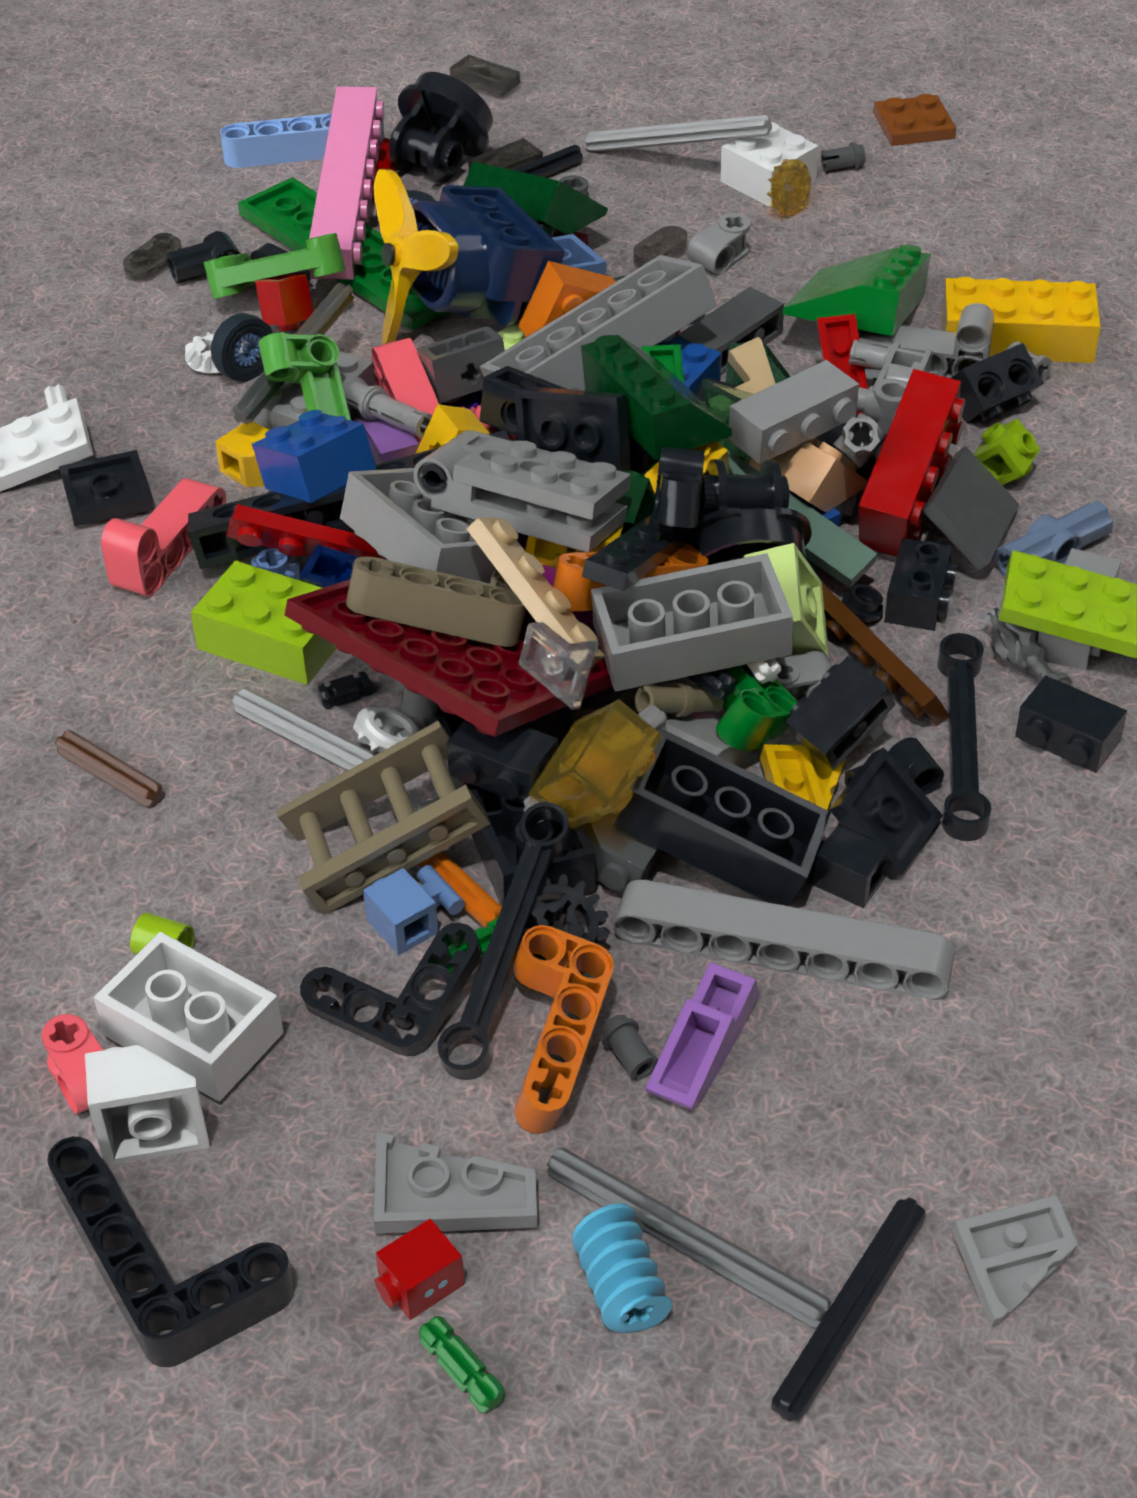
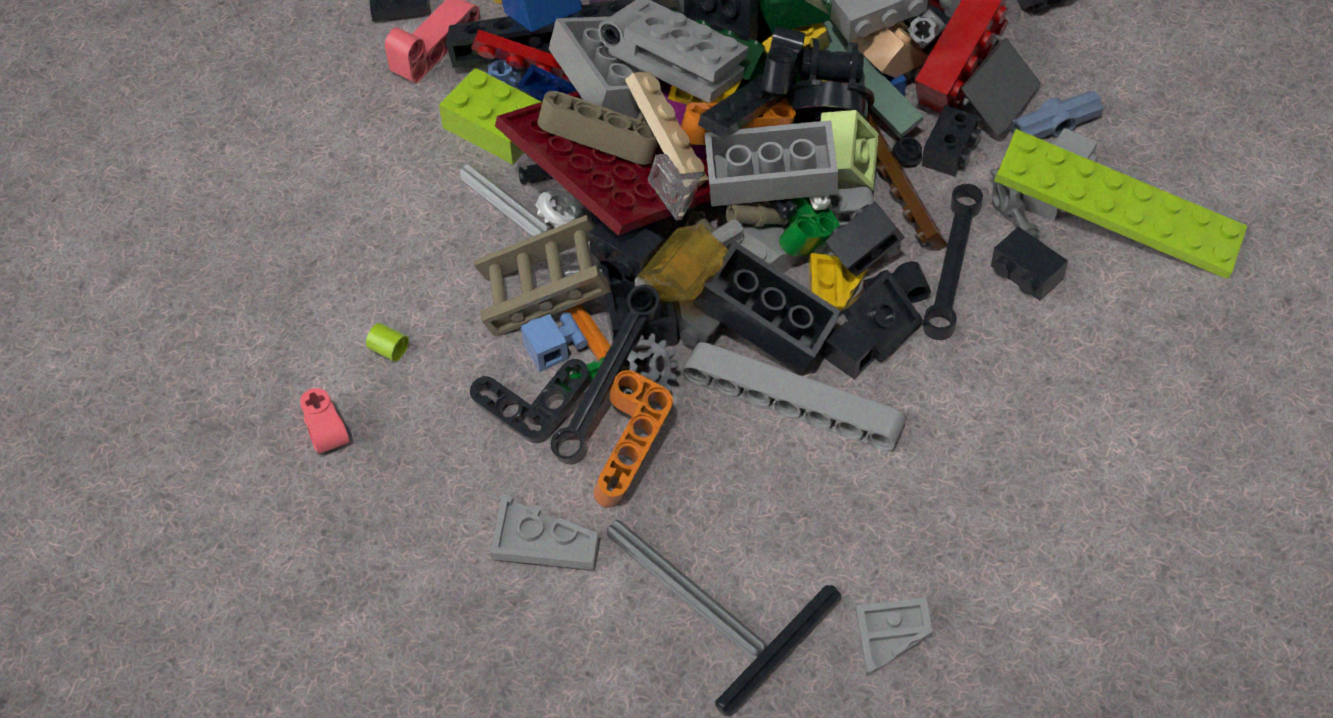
camera: 10 degrees right, 10 degrees up
(86, 1186) = (339, 560): black beam -> none
(109, 768) = (370, 212): axle -> none
(142, 1105) = (355, 457): white slope -> none
(190, 1014) = (395, 398): white brick -> none
(418, 1269) = (512, 587): red brick -> none
(461, 1364) = (529, 650): green axle -> none
(620, 1270) = (637, 605): medium azure piece -> none
(623, 1038) = (672, 450): dark grey pin -> none
(703, 1036) = (725, 457): medium lavender slope -> none
(1007, 451) = (1039, 42): lime brick -> none

